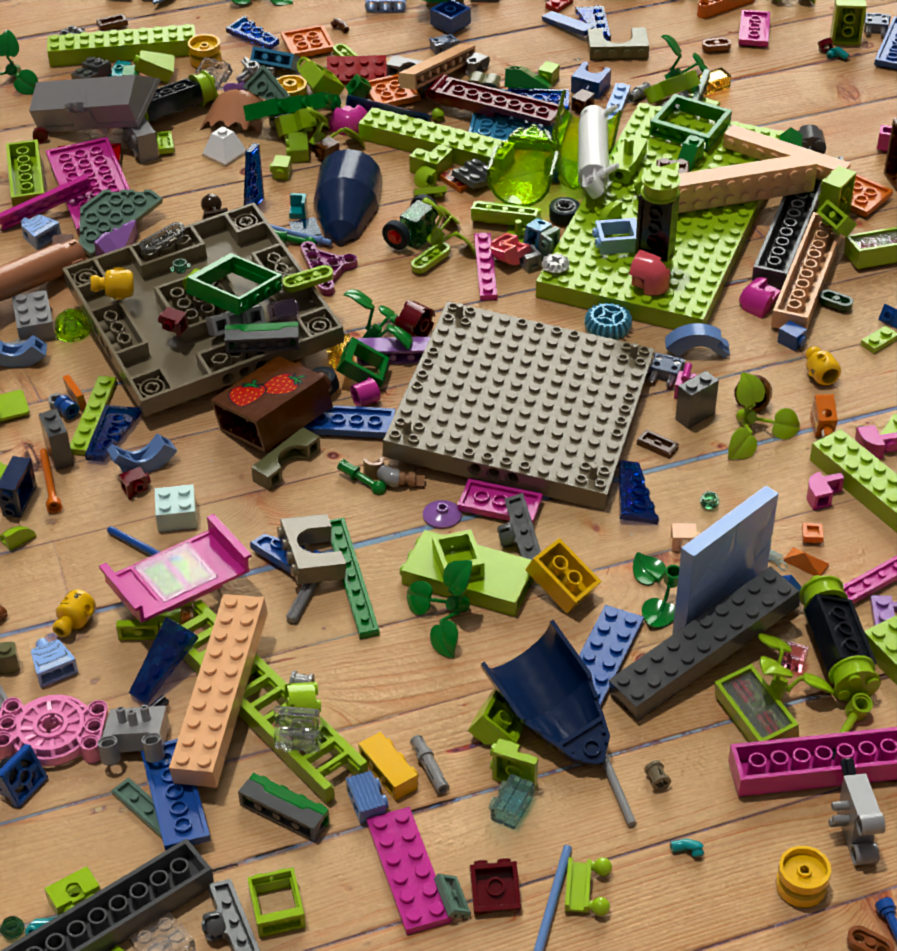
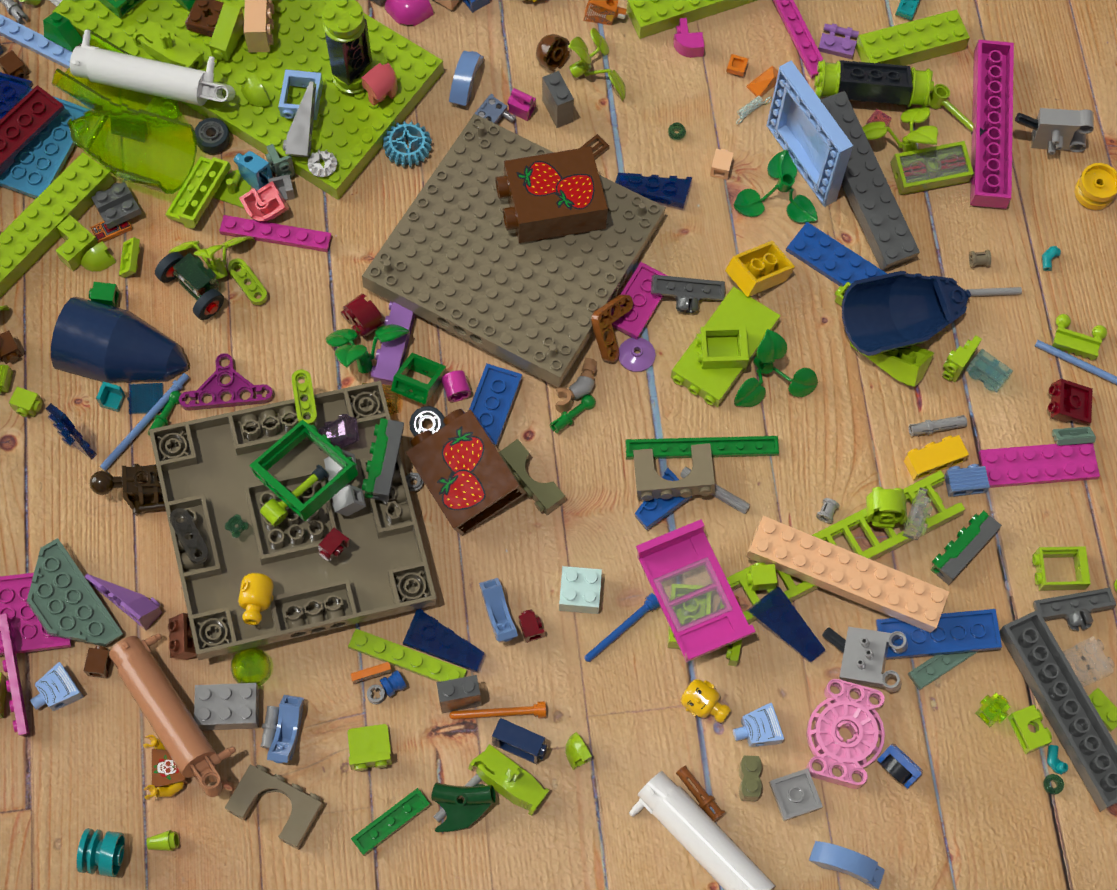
camera: 80 degrees left, 25 degrees up
(91, 852) = (993, 709): none -> clear neon green brick
(203, 621) = (762, 576): none -> lime brick
(390, 186) = (104, 293): none -> green brick
(454, 469) = (609, 348): none -> dark orange beam
(575, 397) = (552, 195): none -> reddish brown brick
(582, 235) = (300, 133): none -> light grey slope
(628, 108) = (61, 31): none -> green slope

